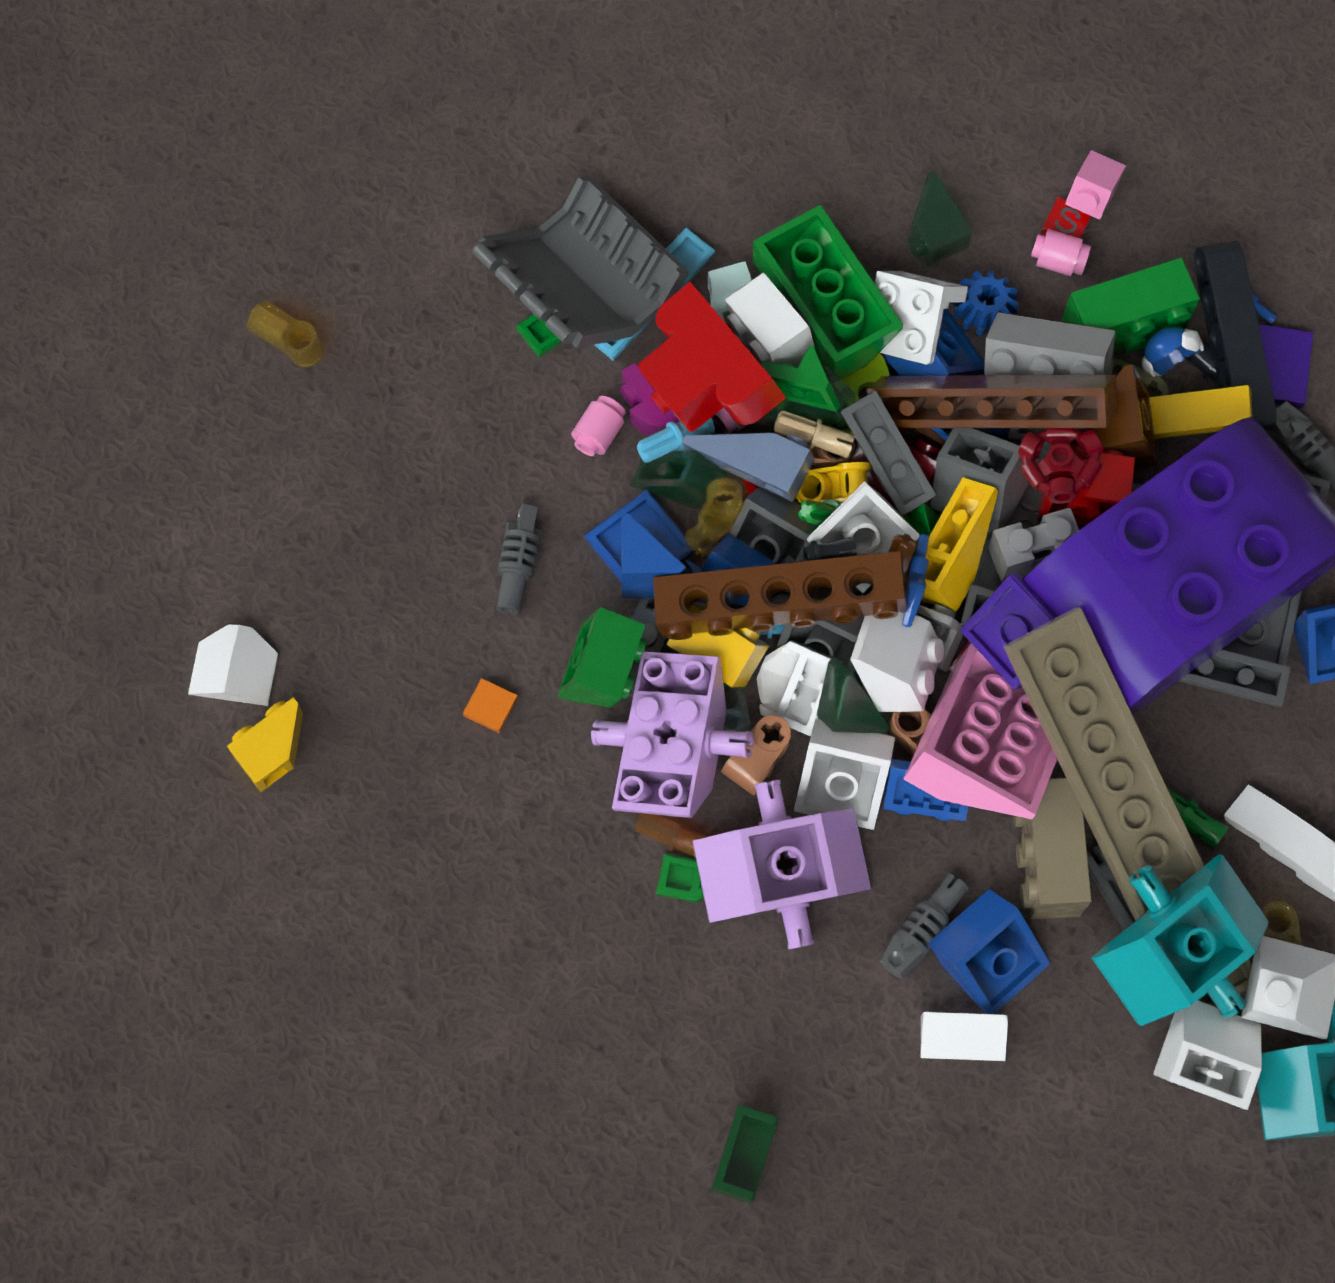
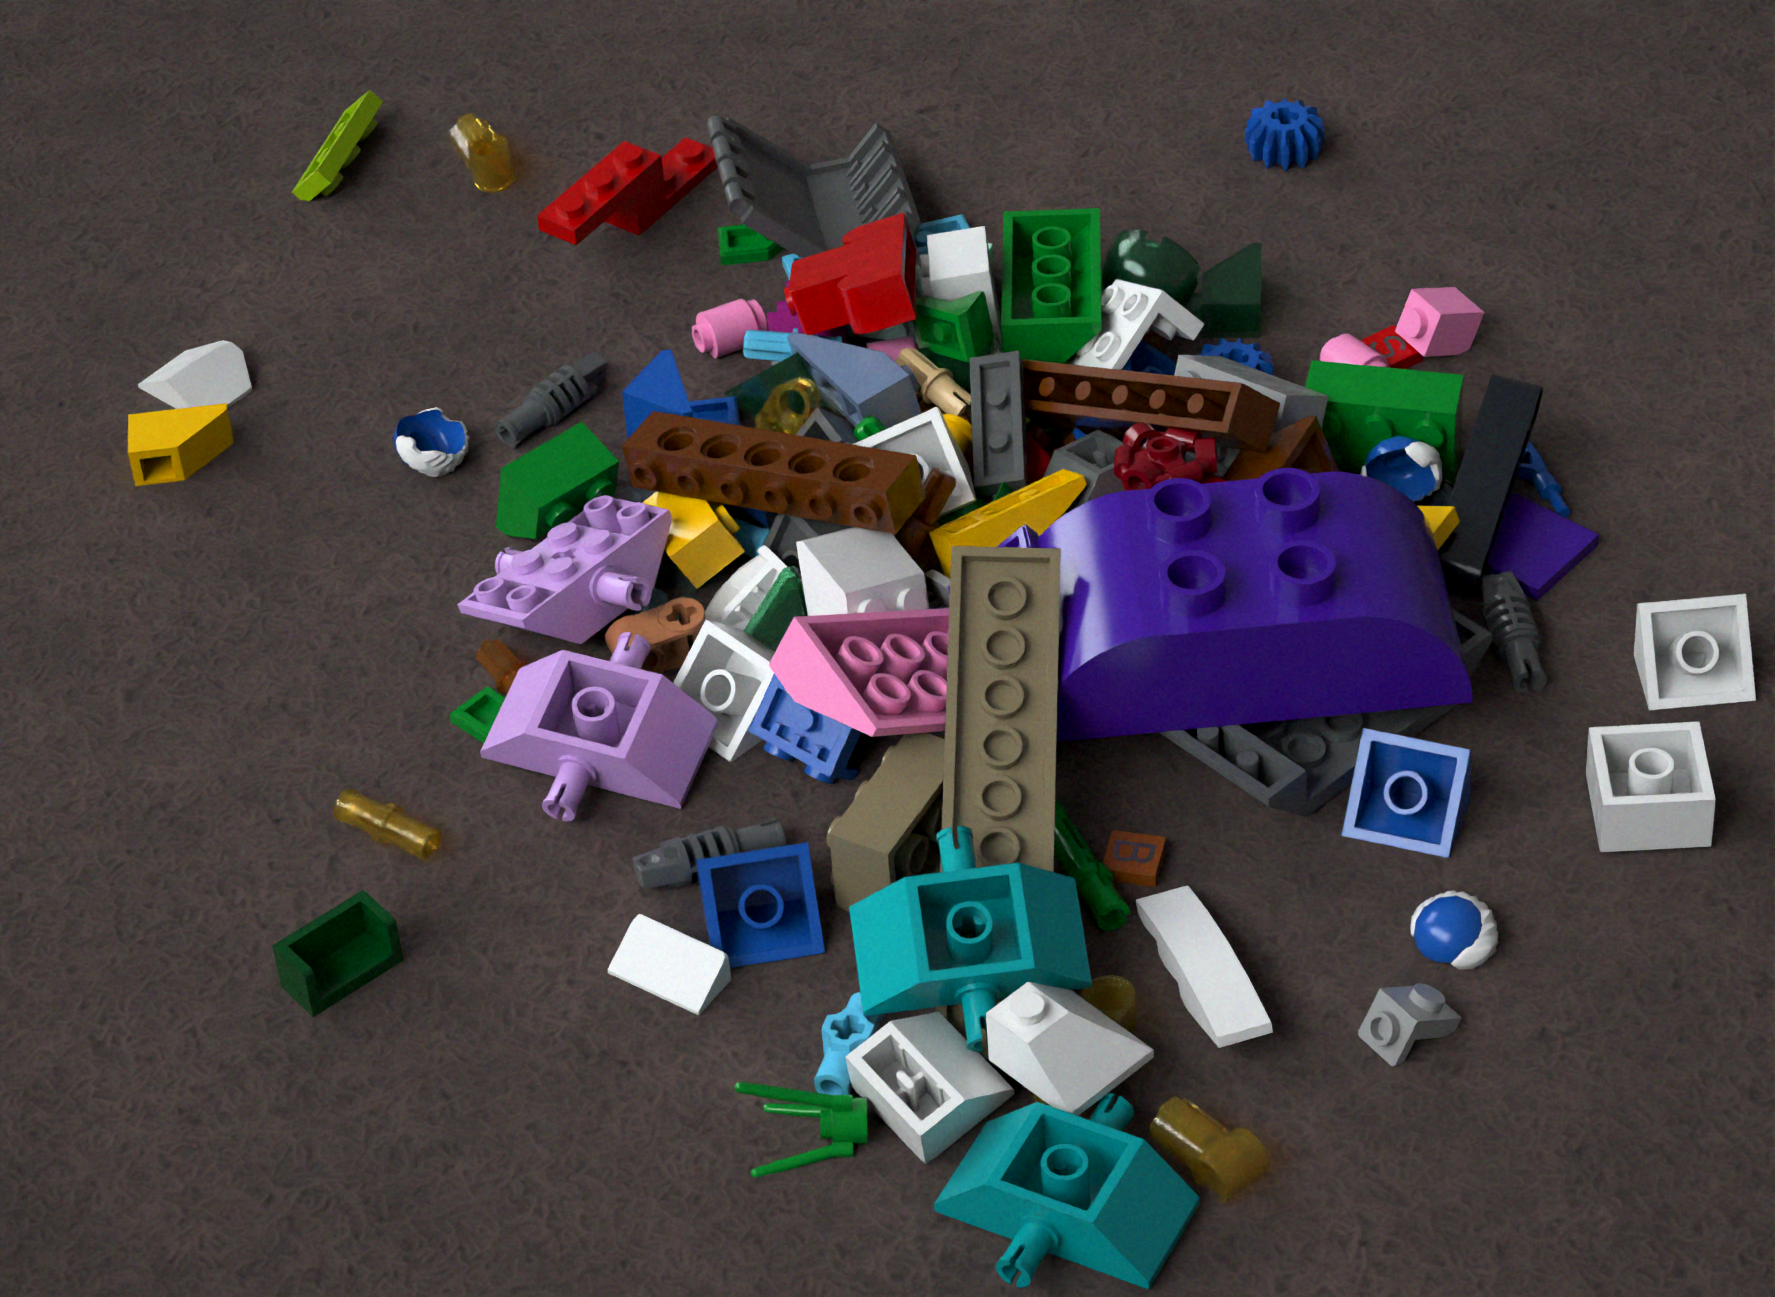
camera: 35 degrees right, 30 degrees down
(168, 381) = (339, 148): none -> lime plate
(436, 329) = (627, 190): none -> red bracket
(453, 650) = (431, 442): none -> hair
(490, 705) = (420, 503): orange tile -> none
(687, 1017) = (387, 824): none -> clear yellow pin
(866, 40) = (1284, 133): none -> blue gear
(880, 243) = (1151, 264): none -> clear green cylinder
(916, 580) = (925, 526): blue hand -> none
(1136, 1063) = (841, 1036): none -> medium azure axle
(1164, 1106) = (840, 1119): none -> green plant
(1196, 776) = (1135, 857): none -> dark orange tile

